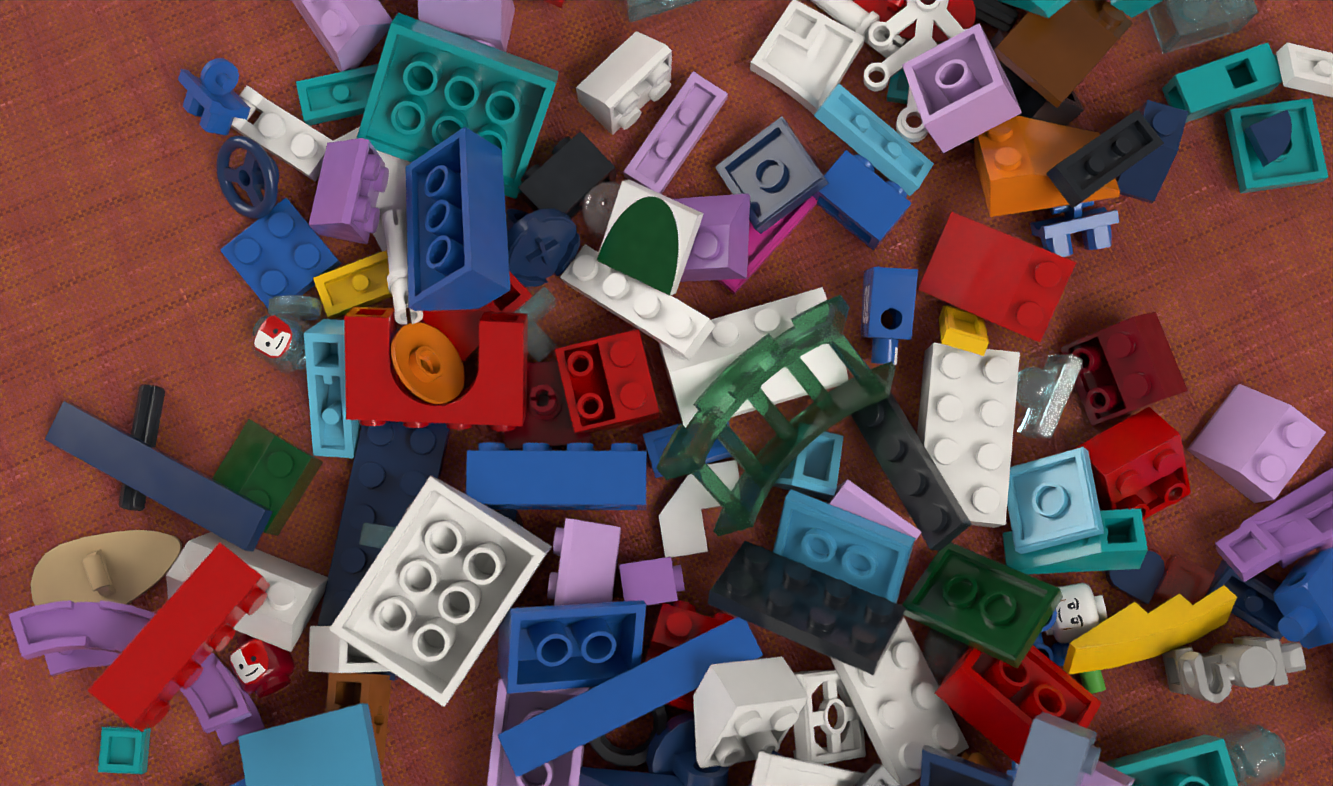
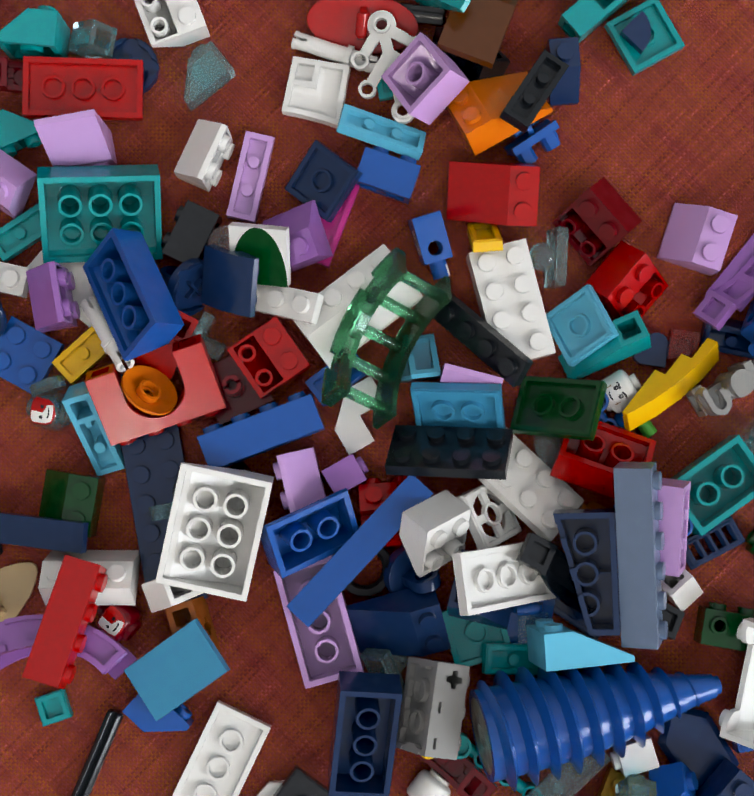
camera: 25 degrees left, 5 degrees up
(595, 257) = (230, 280): none -> dark blue slope

